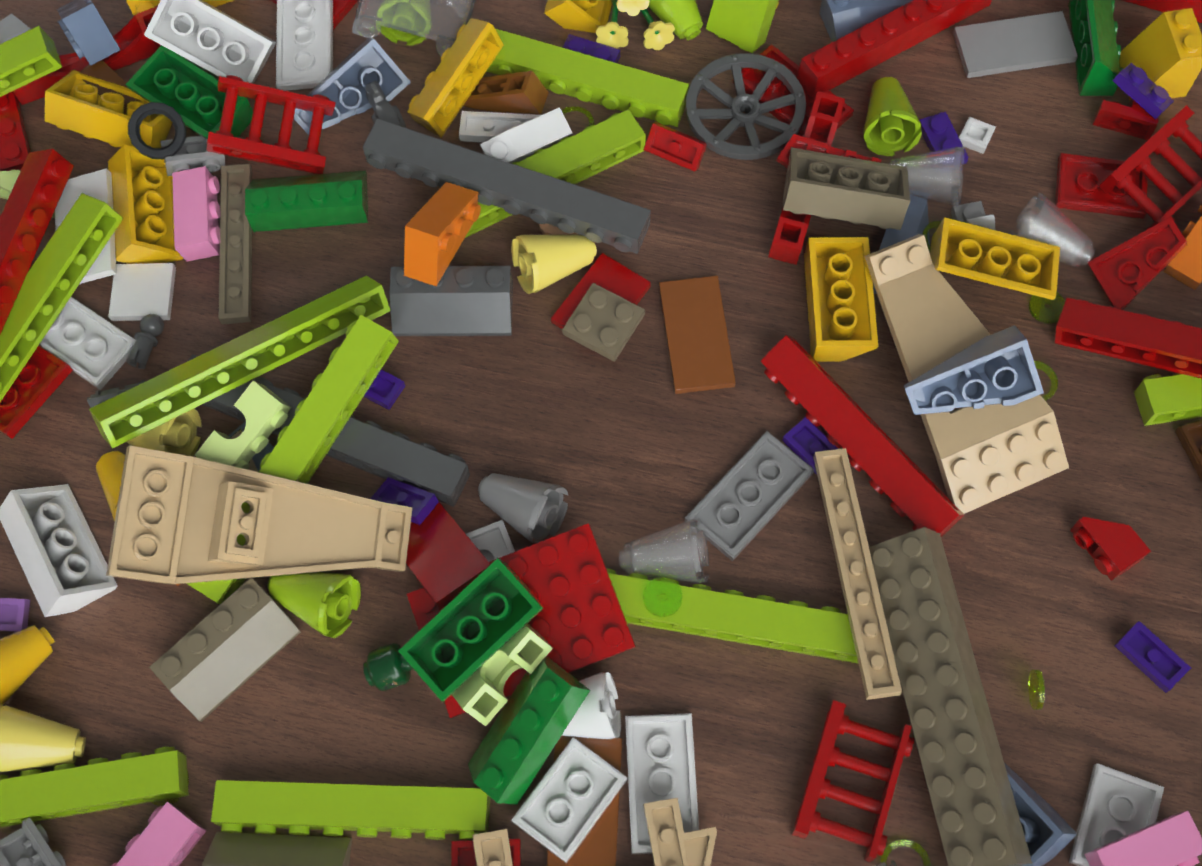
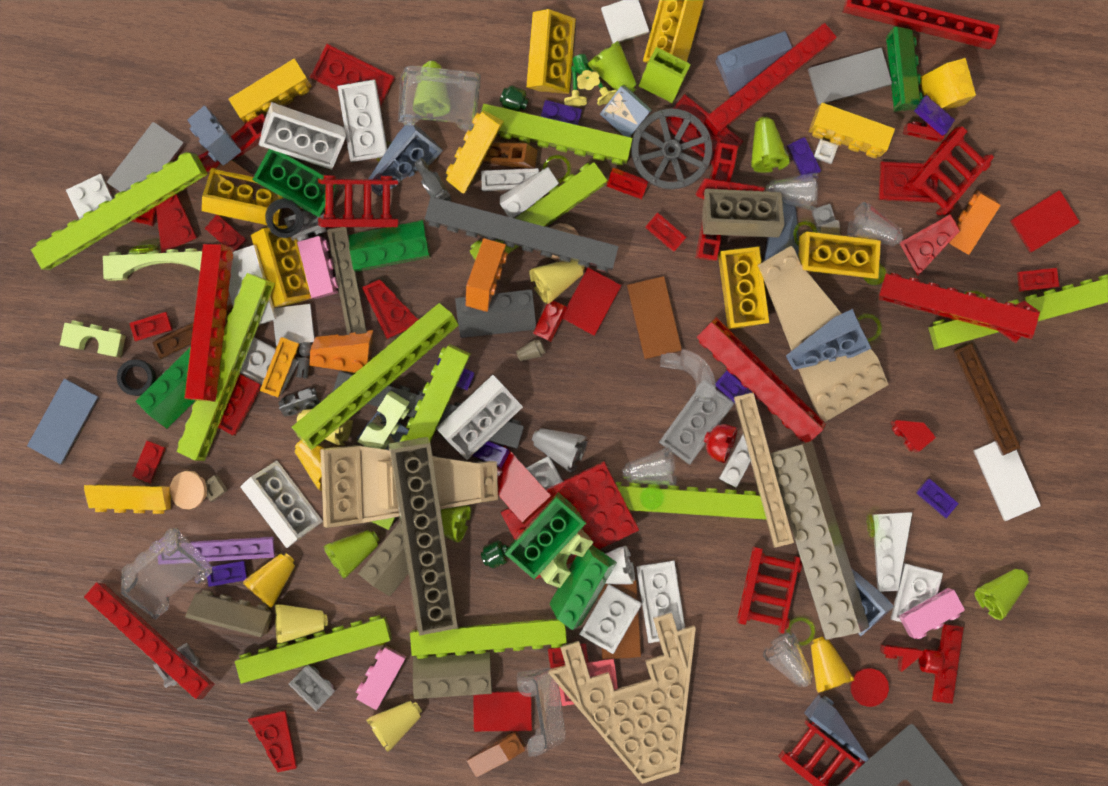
camera: 10 degrees left, 20 degrees up
(75, 155) = (225, 233): none -> red plate
(103, 342) = (279, 367): none -> light orange plate
(148, 633) = (351, 551): none -> lime cone
(201, 326) = (342, 352): none -> orange wedge
(265, 611) = (423, 535): none -> dark tan brick
(286, 277) = (389, 311): none -> red wing
(397, 438) = (479, 417): none -> white slope
(498, 360) = (531, 350): none -> dark tan cone
(525, 23) = (514, 98): none -> dark green head
(533, 320) = (550, 320): none -> red plate
(603, 322) = (595, 318): dark tan plate -> none
(682, 51) = (625, 111): none -> tile
(726, 216) = (665, 232): none -> red plate
(755, 406) = (697, 369): none -> clear arch
(787, 522) = (720, 442): none -> red cylinder
(811, 566) = (736, 464): none -> white plate
(1016, 101) = (851, 130): none -> yellow brick
(1070, 735) = (890, 548): none -> white wing

